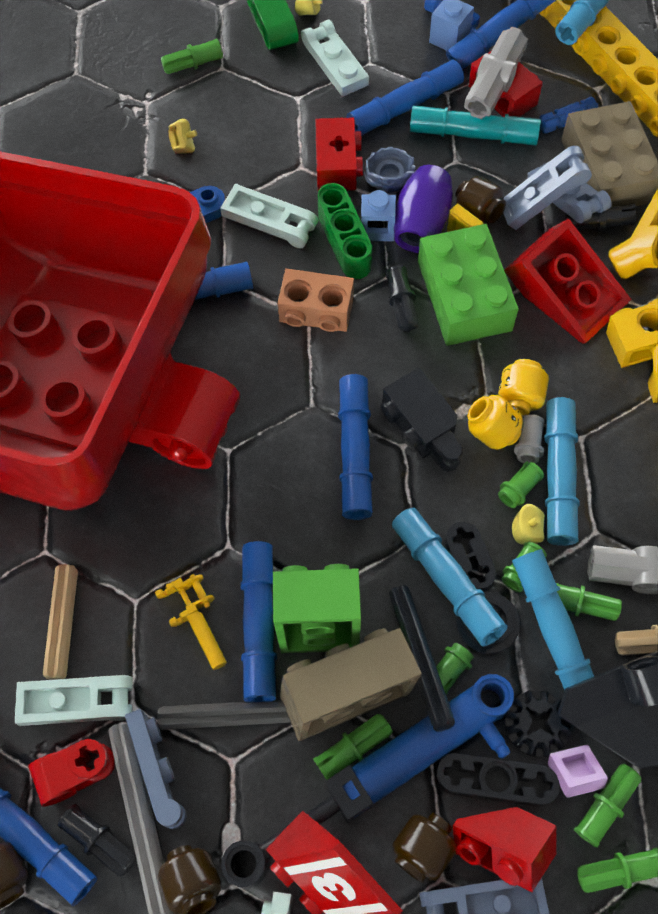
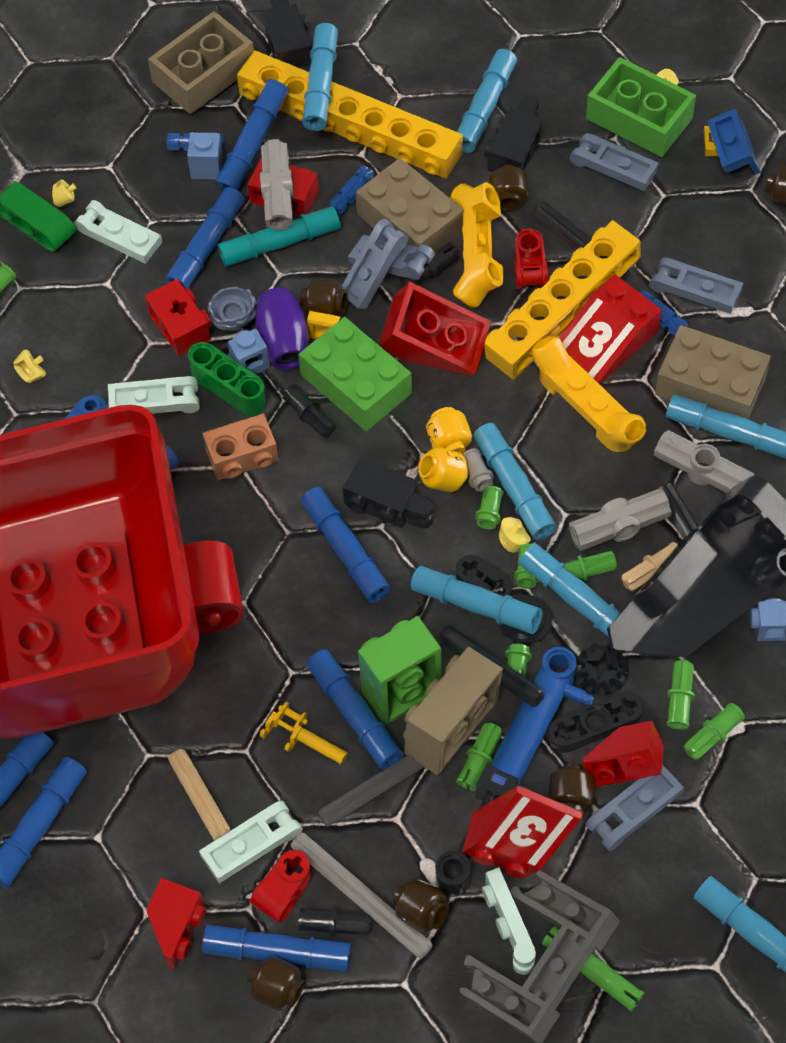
camera: 30 degrees left, 5 degrees down
(155, 770) = (346, 851): sand blue plate -> none
(577, 771) = (647, 683): lavender plate -> none

